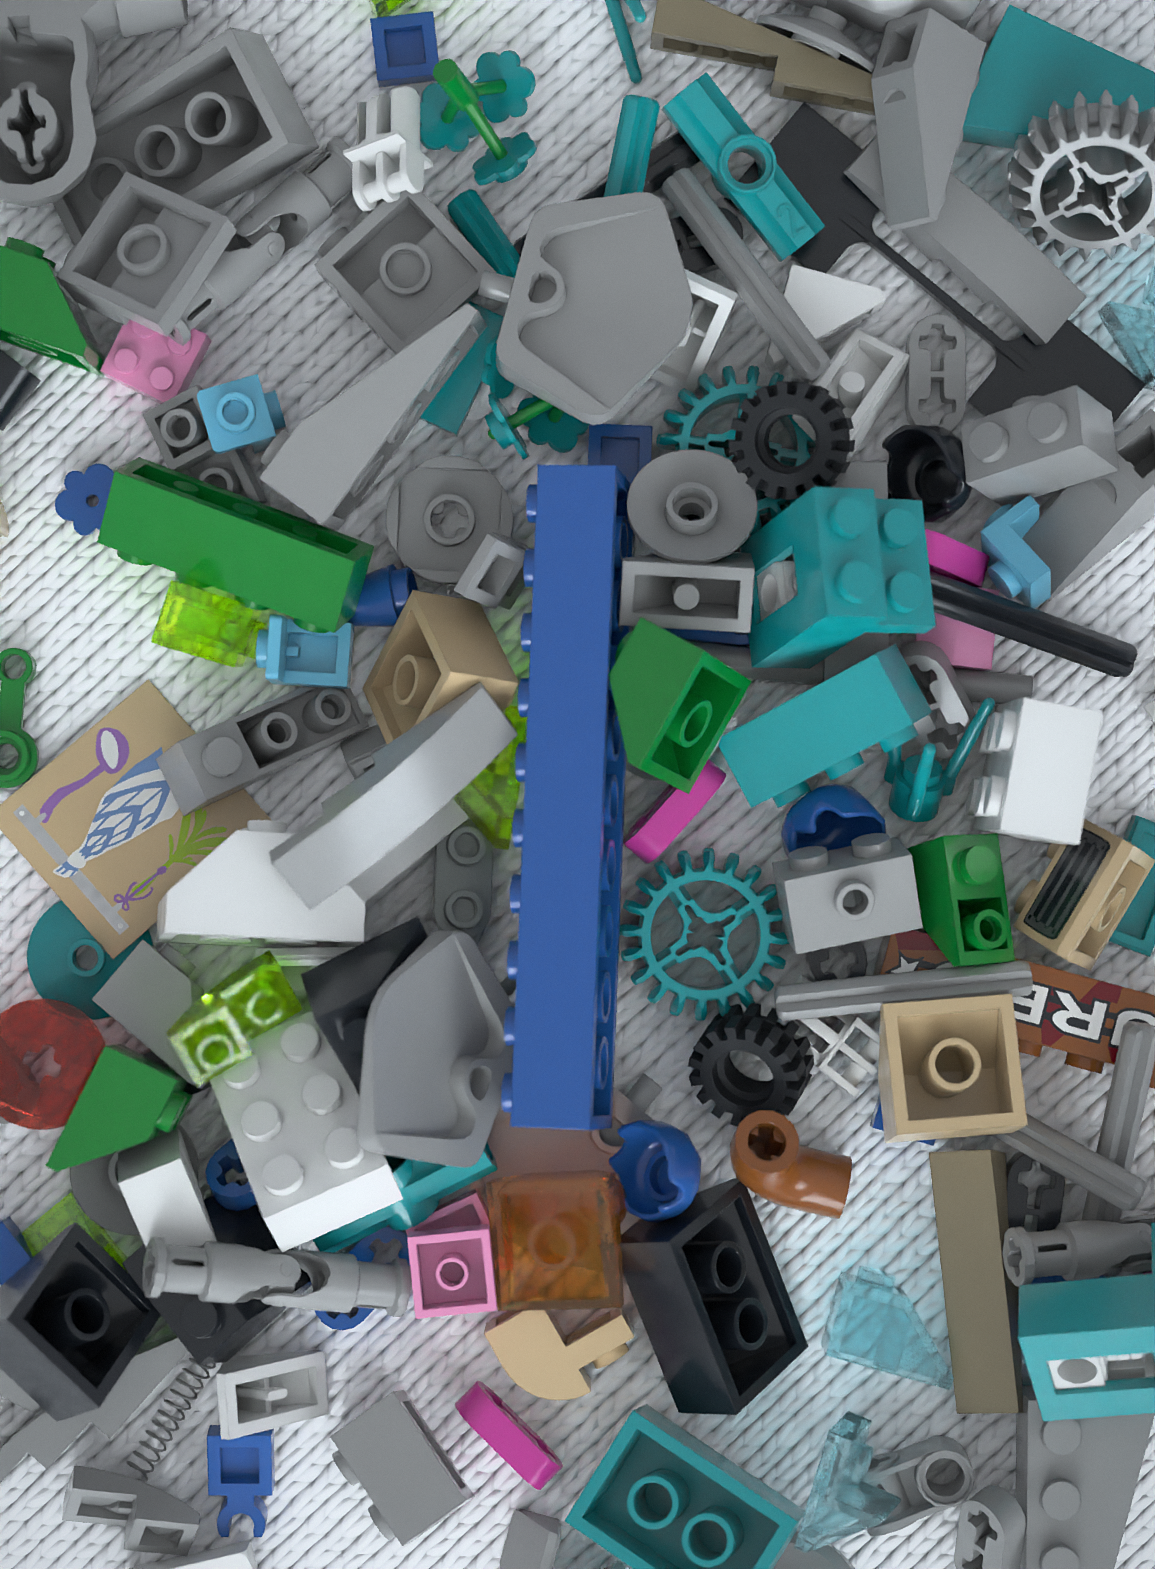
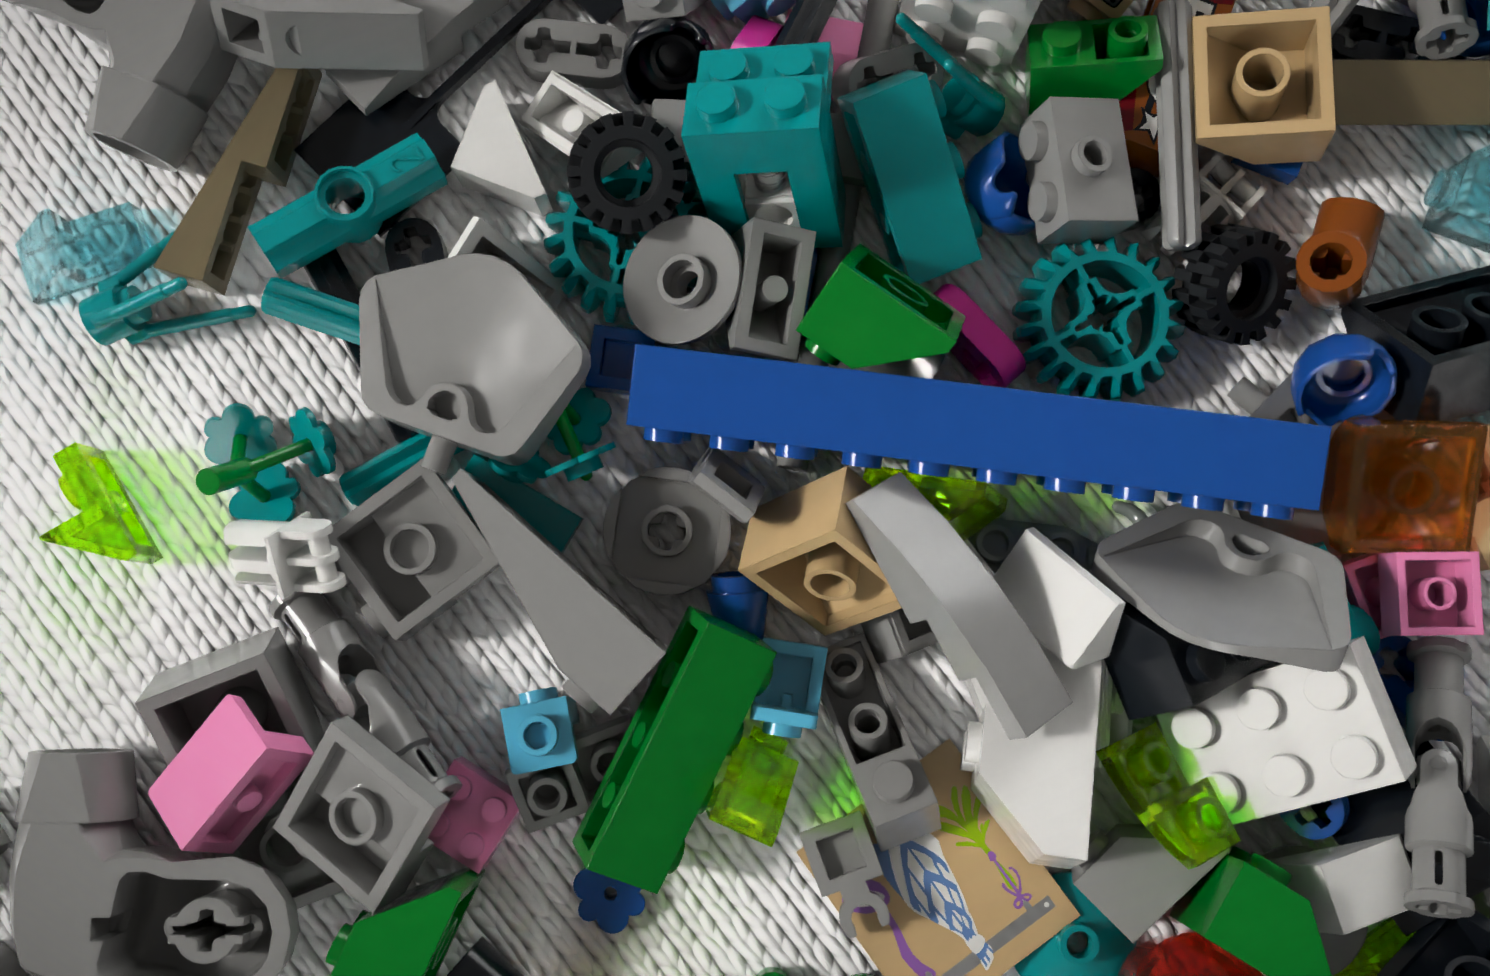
camera: 90 degrees left, 5 degrees down
(144, 721) = (843, 862): none -> light grey plate
(168, 122) = (226, 779): none -> bright pink panel
(404, 48) = (191, 532): blue tile -> none
(407, 895) = (1060, 600): none -> white slope
(746, 275) = (456, 208): light grey axle -> none
(822, 32) = (224, 113): light grey dish -> none

